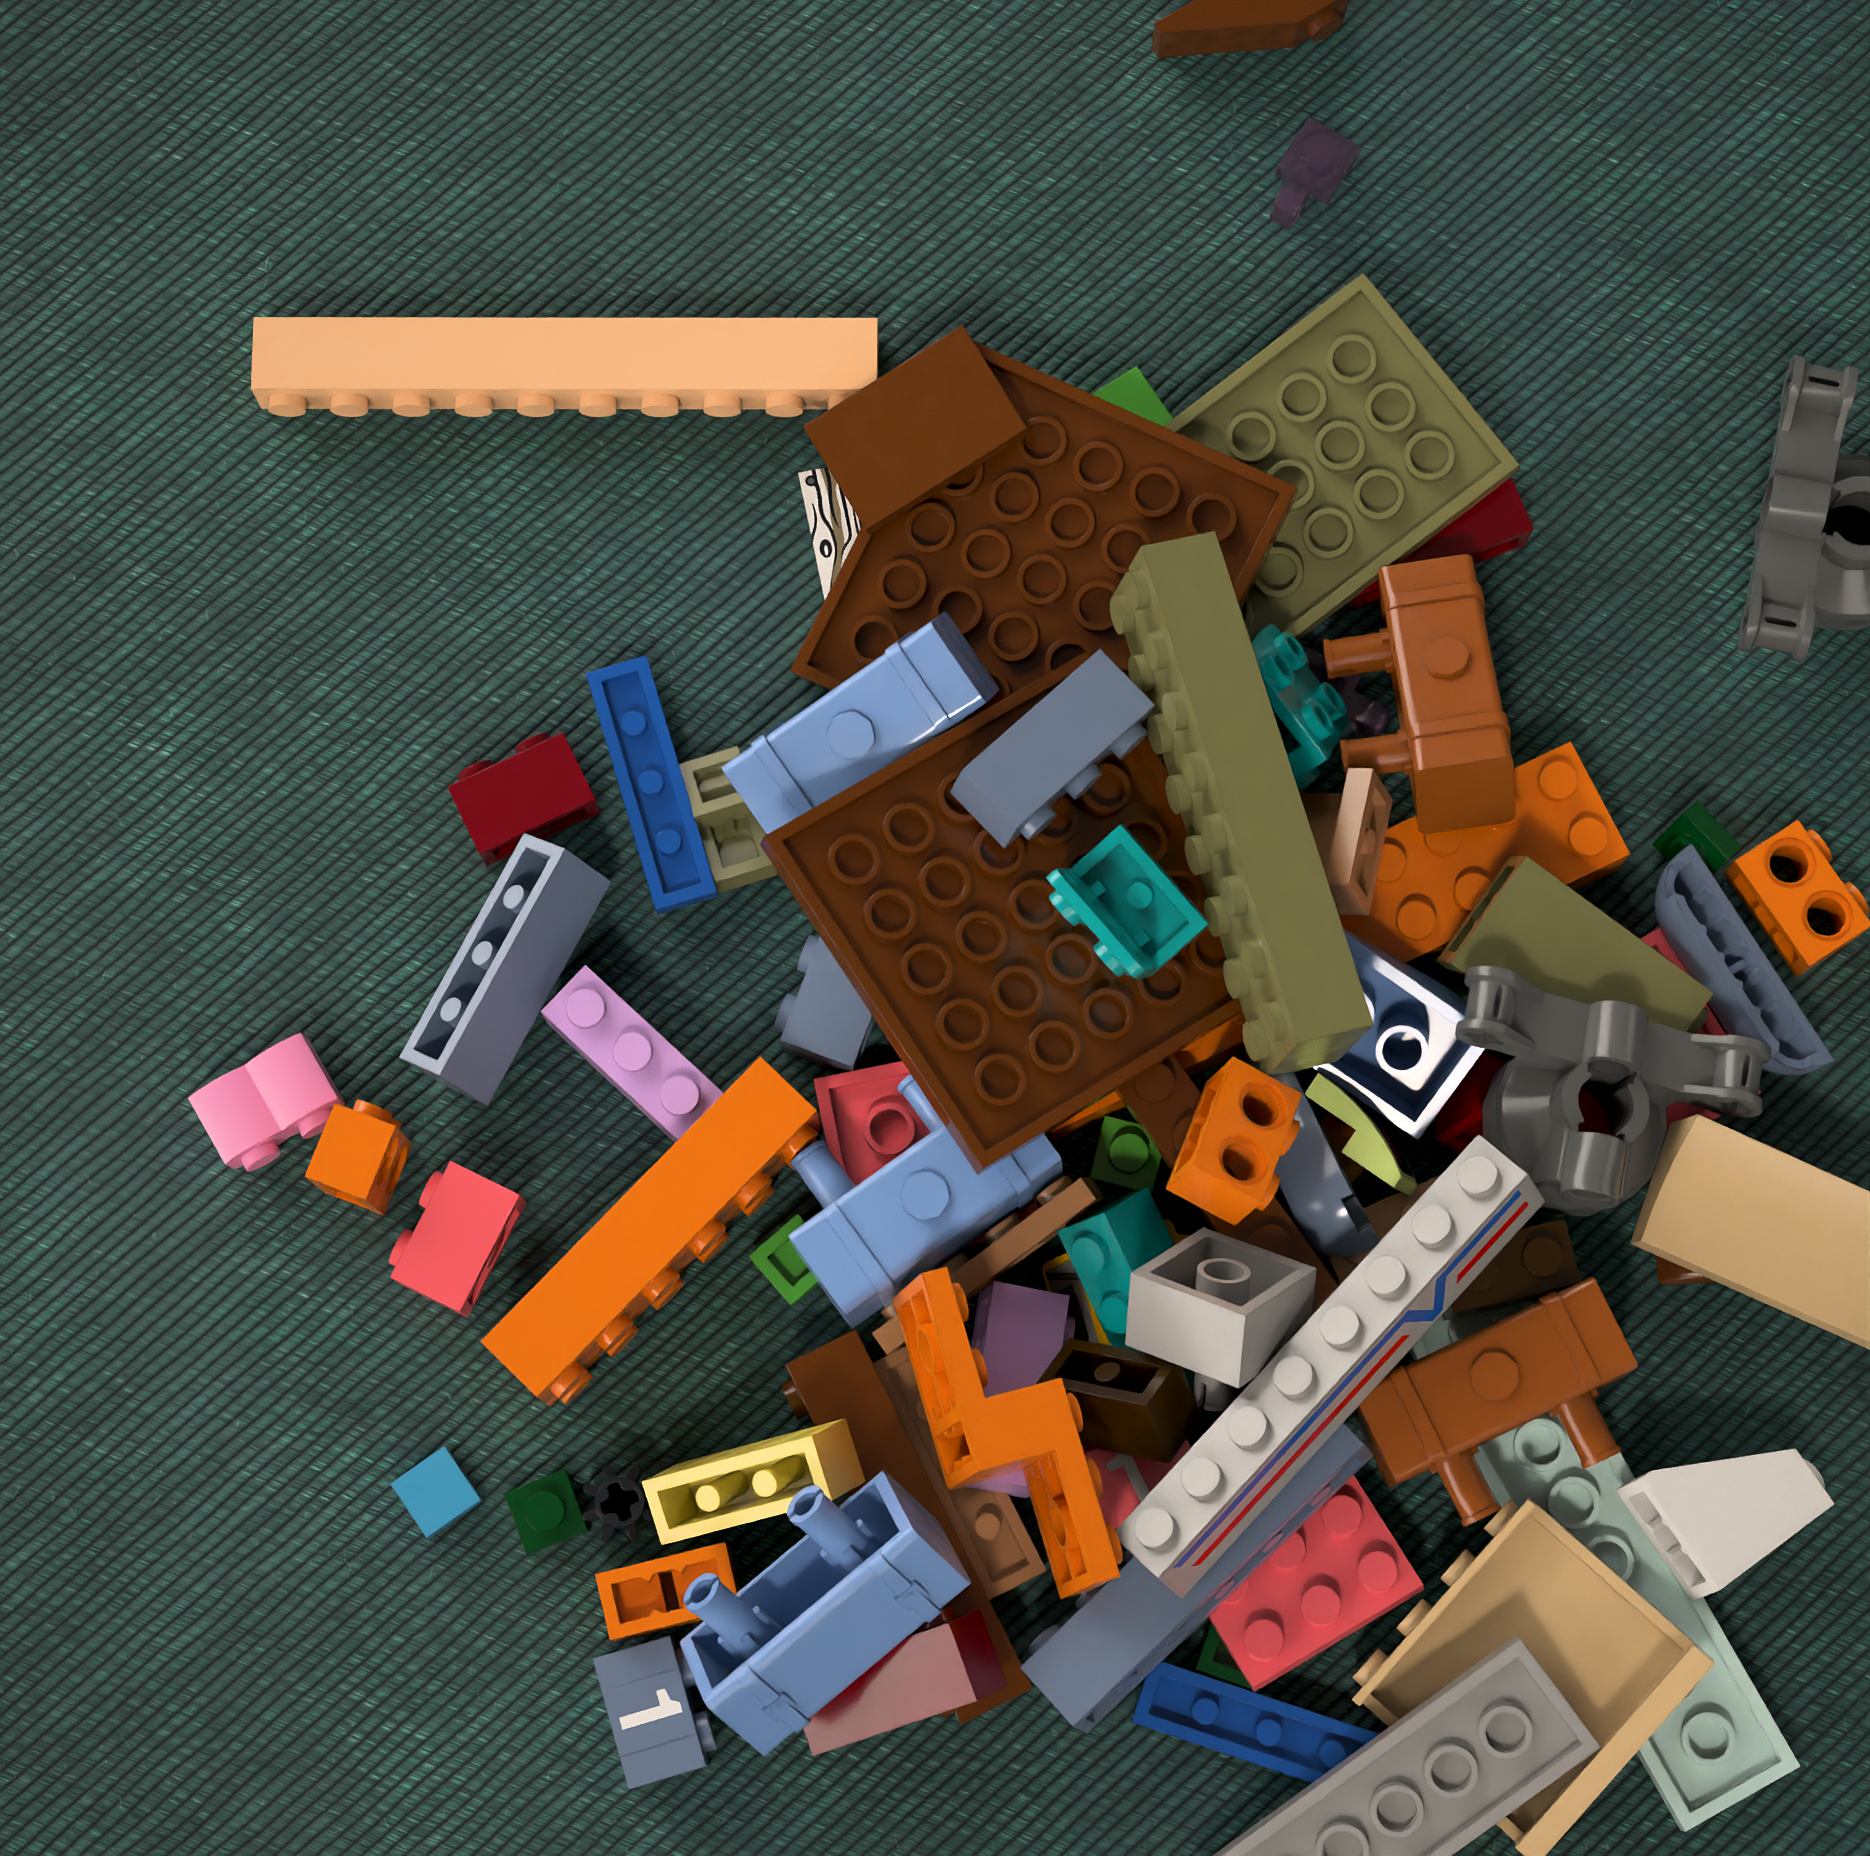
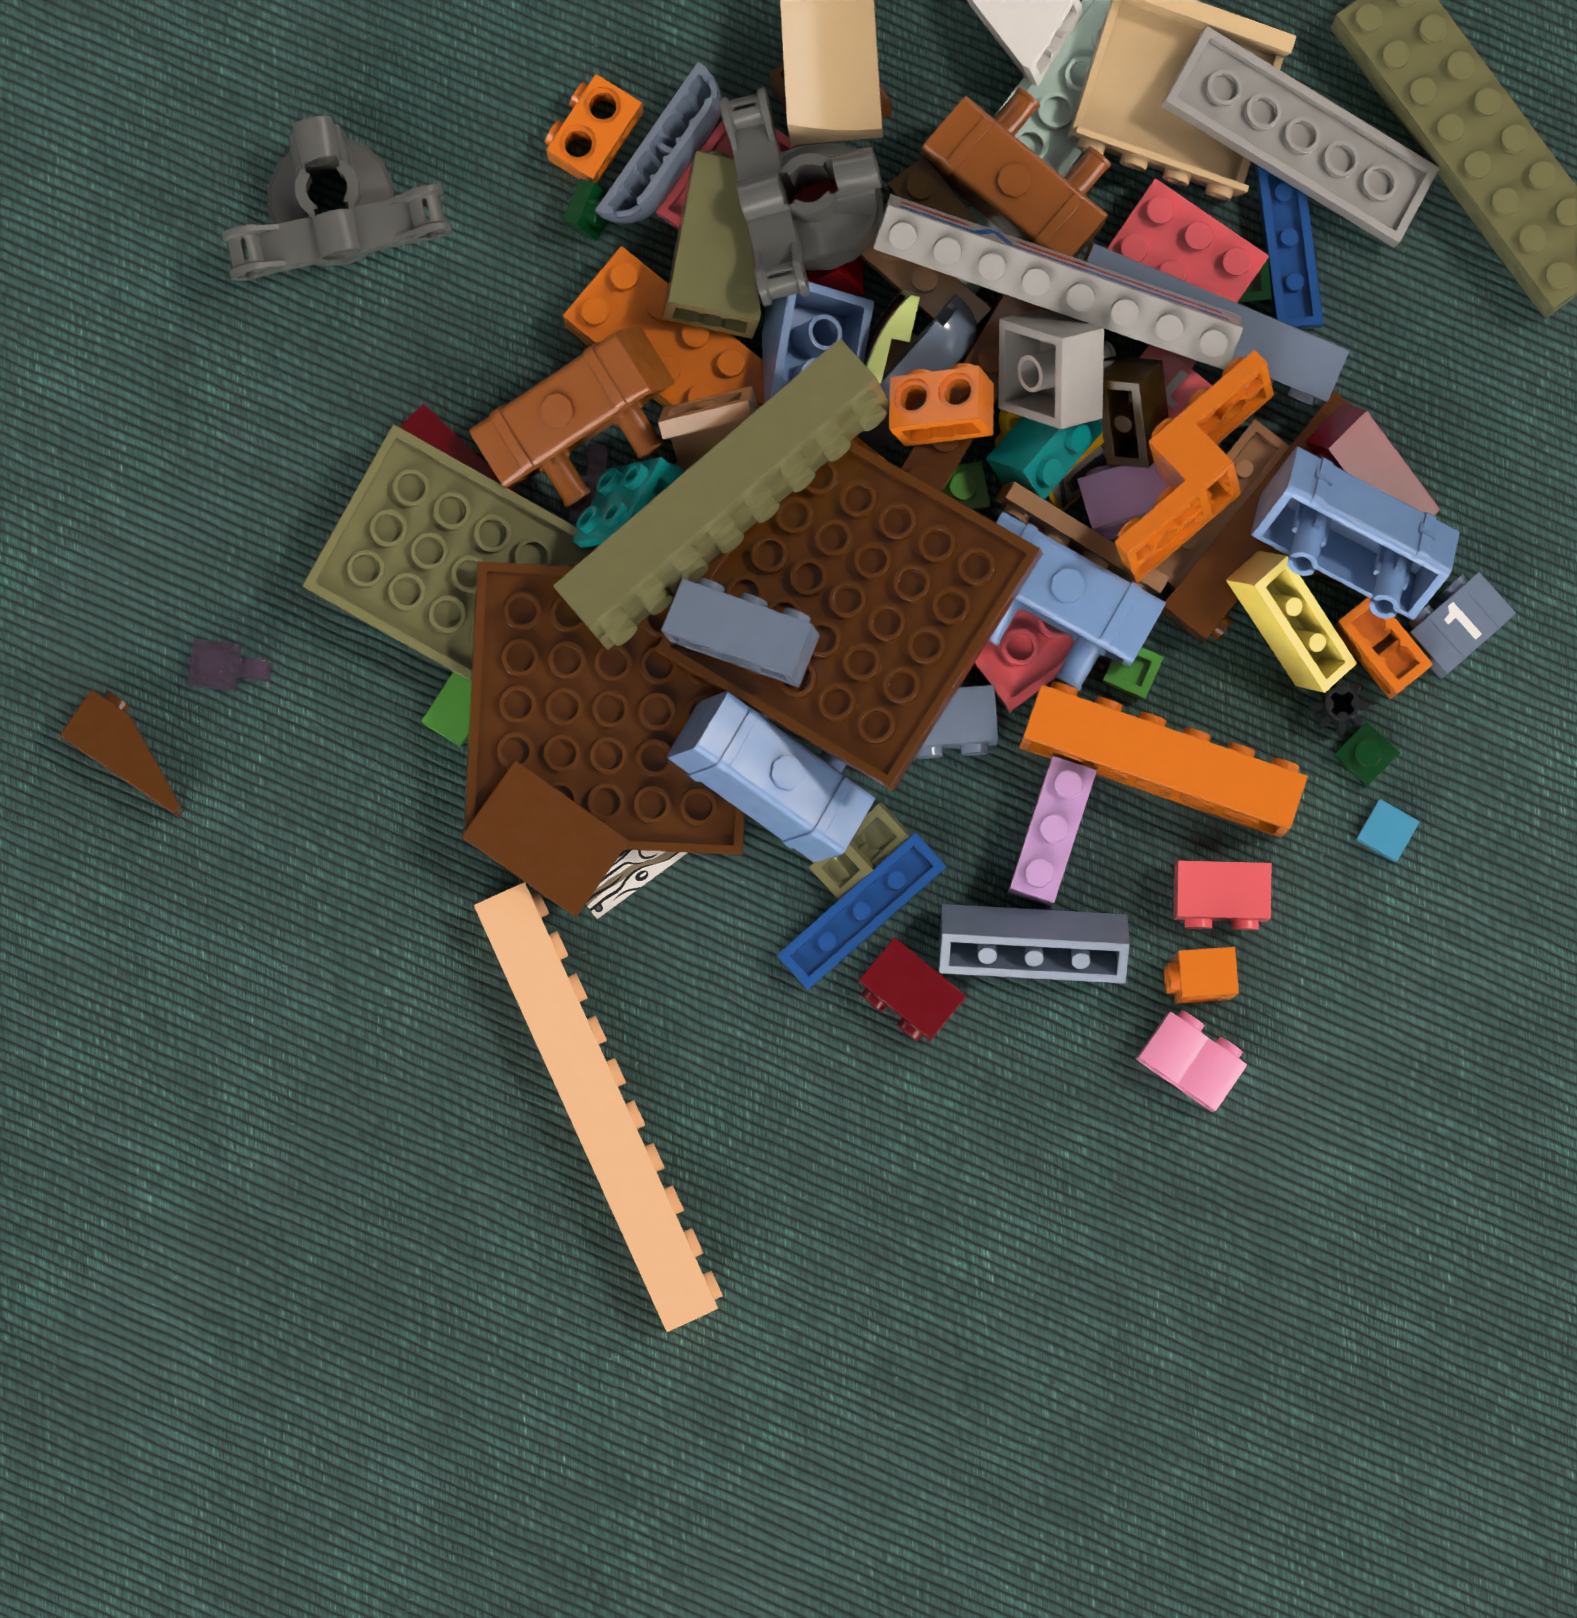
camera: 120 degrees left, 5 degrees up
(1127, 905) = (827, 535): teal bracket -> none

